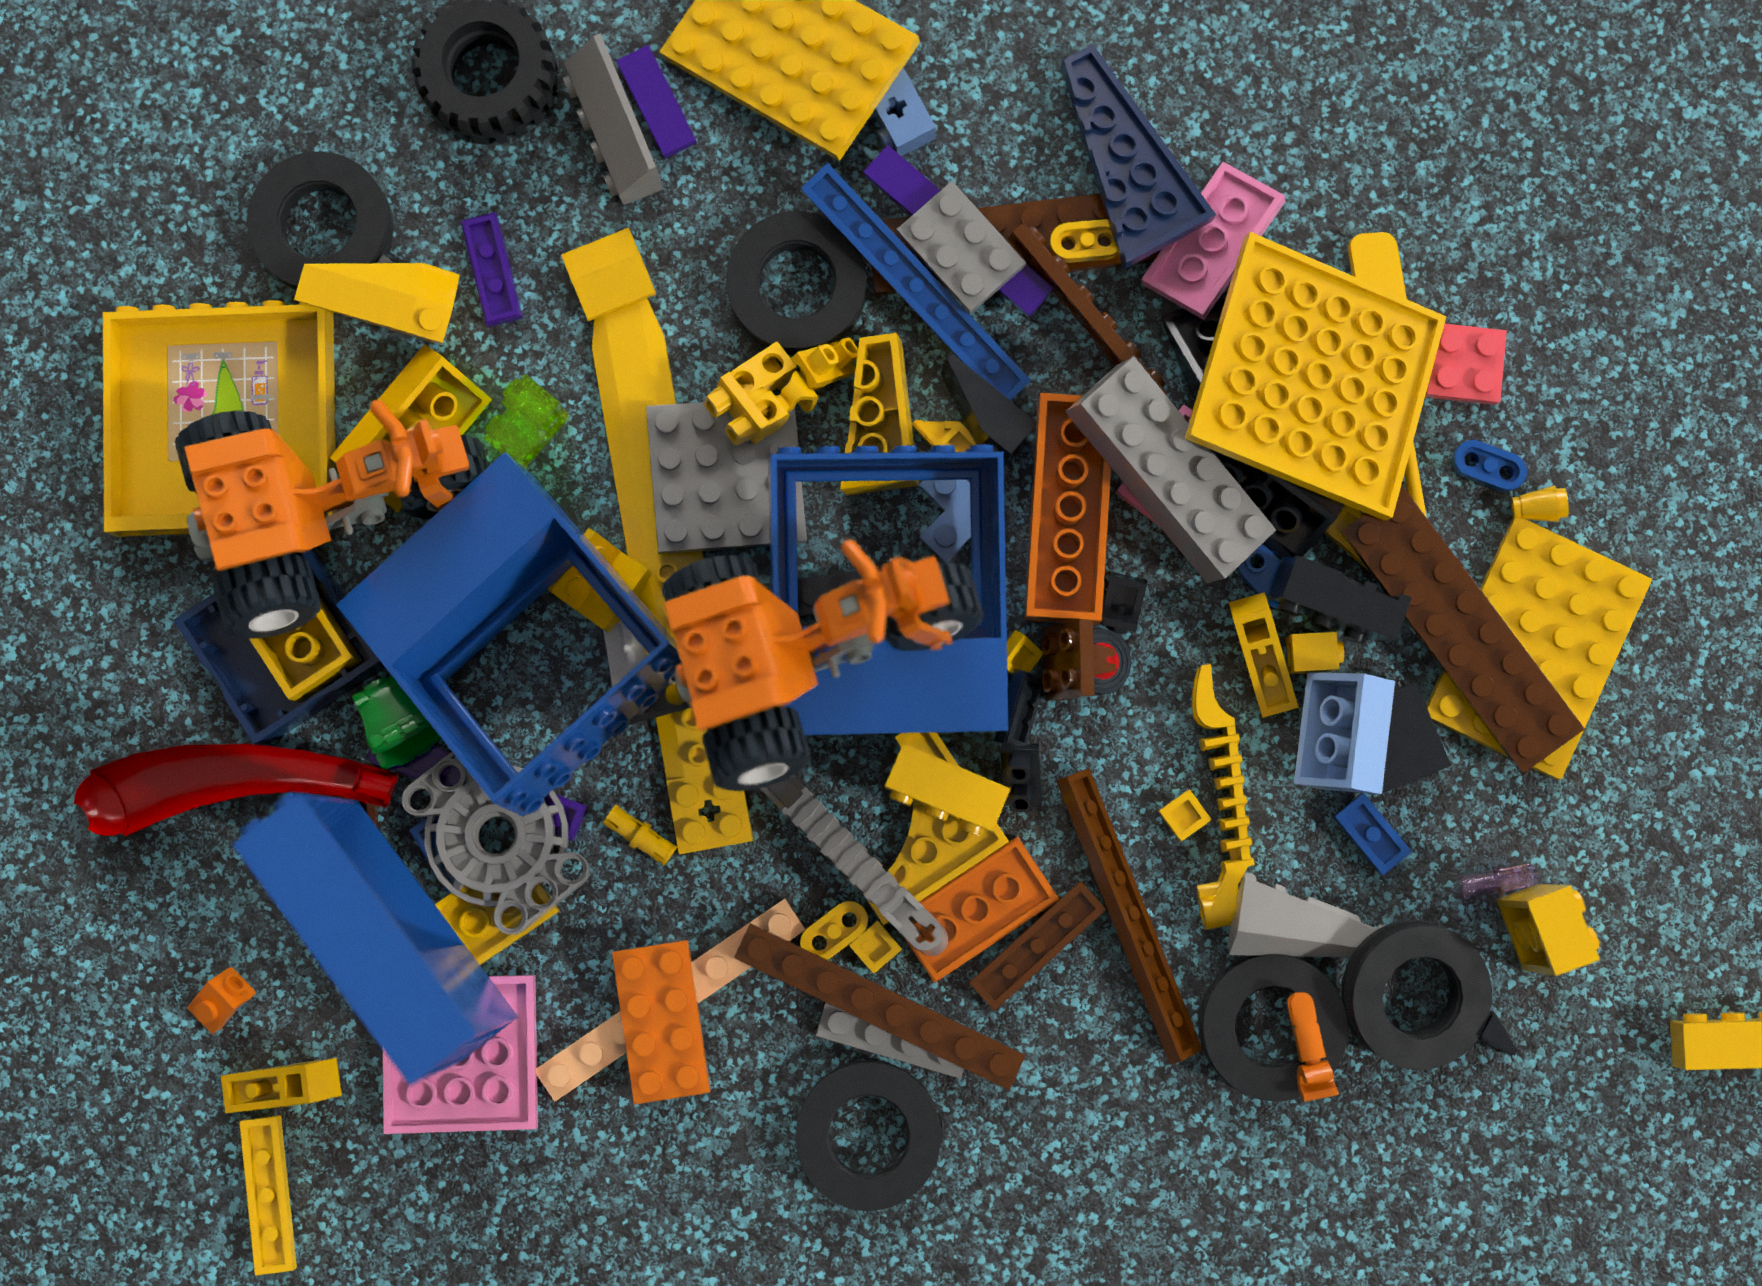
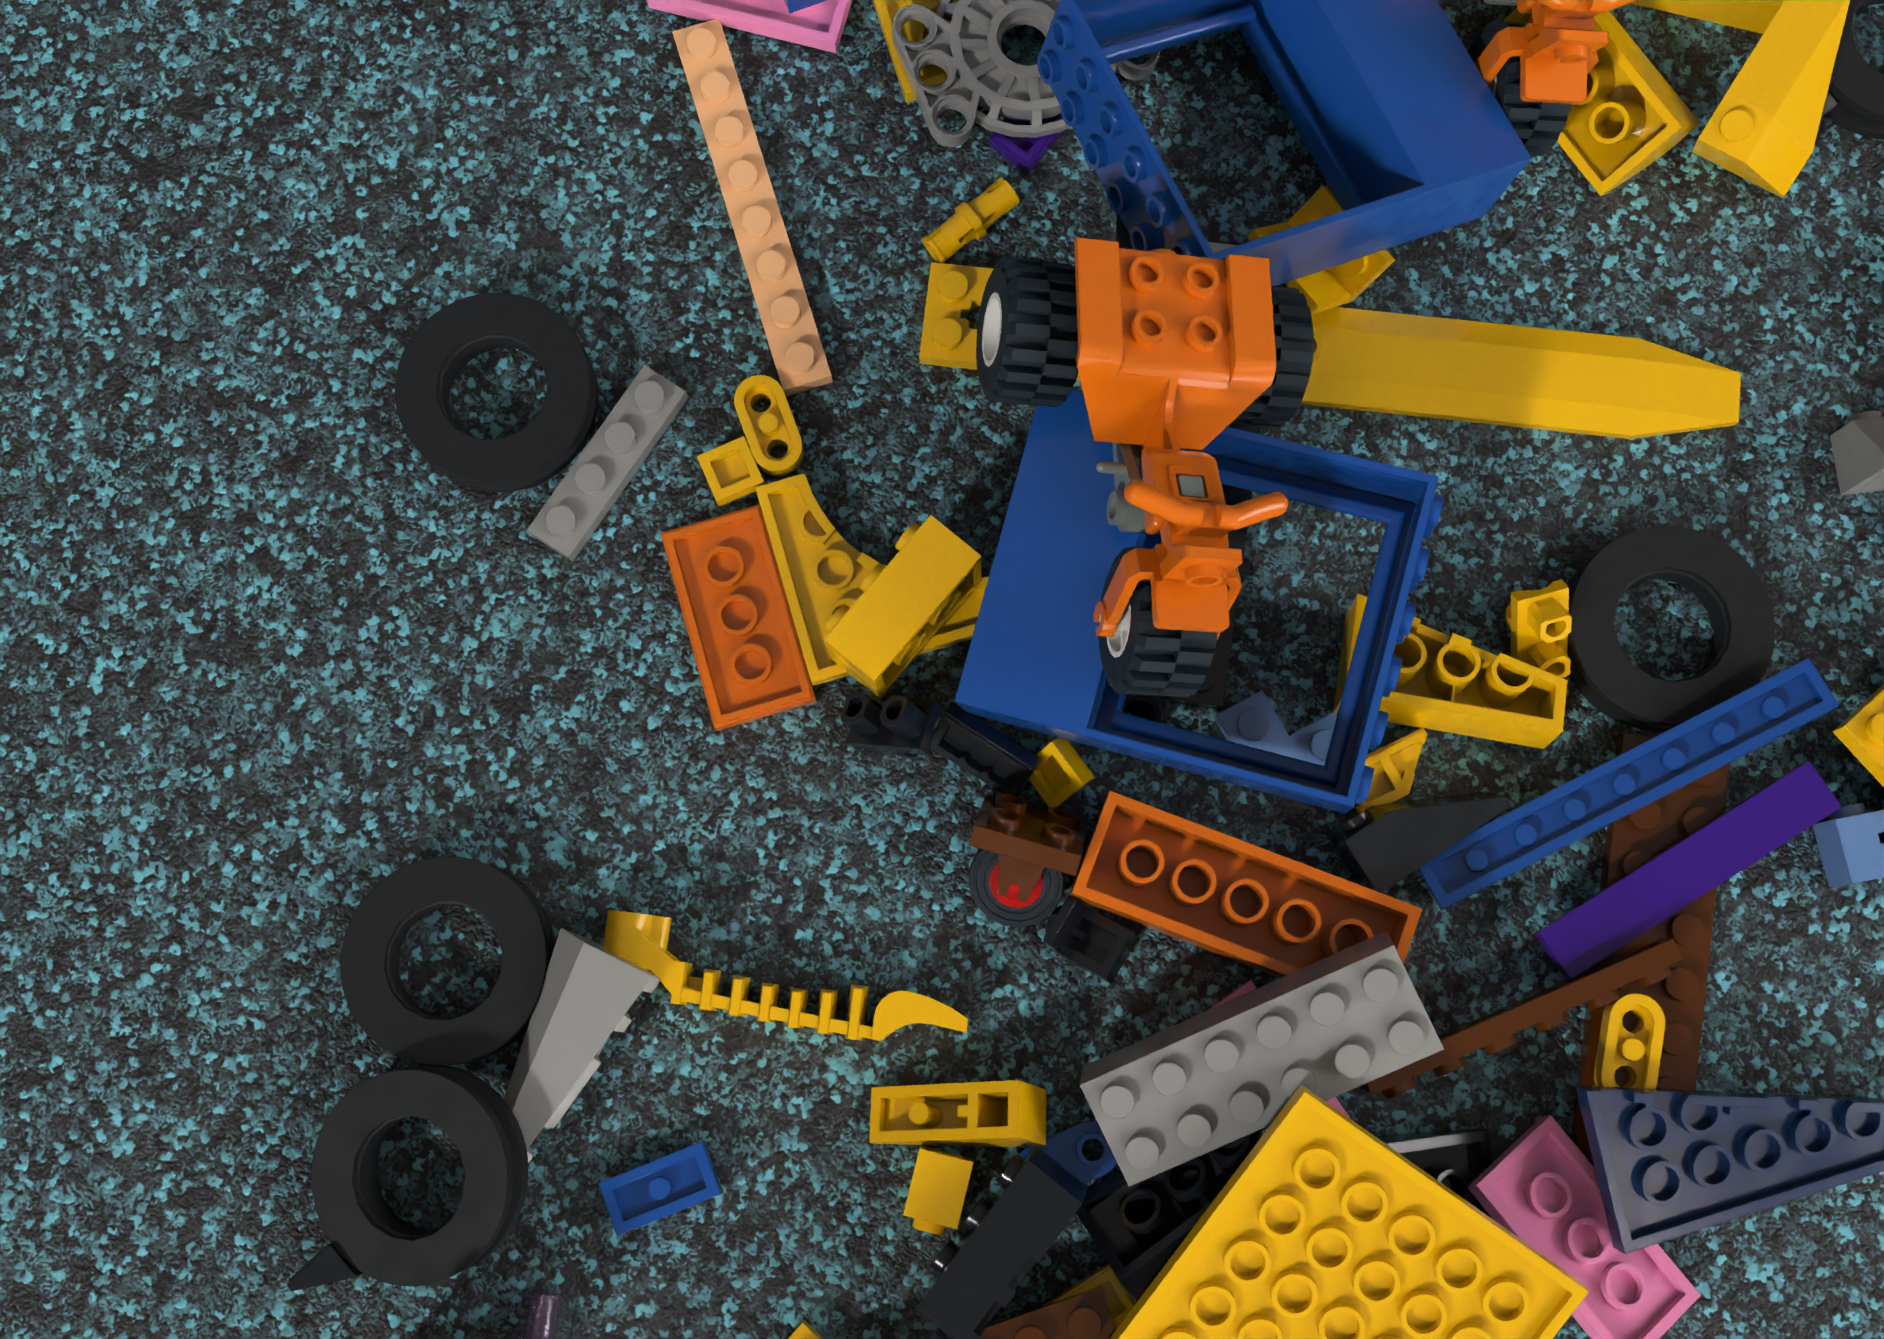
camera: 110 degrees right, 5 degrees down
(491, 269) = (1780, 241): dark purple tile -> none
(528, 423) = (1559, 222): clear neon green brick -> none
(608, 274) = (1737, 383): yellow slope -> none
(661, 1022) = (724, 176): orange plate -> none
(708, 487) = (1435, 419): light grey plate -> none
(749, 395) = (1521, 510): yellow hips -> none
(853, 860) = (771, 499): light grey piece -> none
(880, 1006) = (650, 450): reddish brown plate -> none
(961, 247) = (1664, 863): light grey plate -> none
(1037, 945) = (663, 680): reddish brown plate -> none
(1129, 916) = (661, 813): reddish brown plate -> none
(1184, 815) = (771, 932): yellow plate -> none
(1315, 1076) = (356, 988): orange piece -> none
(1344, 732) = (809, 1191): light blue brick -> none
(1413, 740) = (776, 1279): black slope -> none

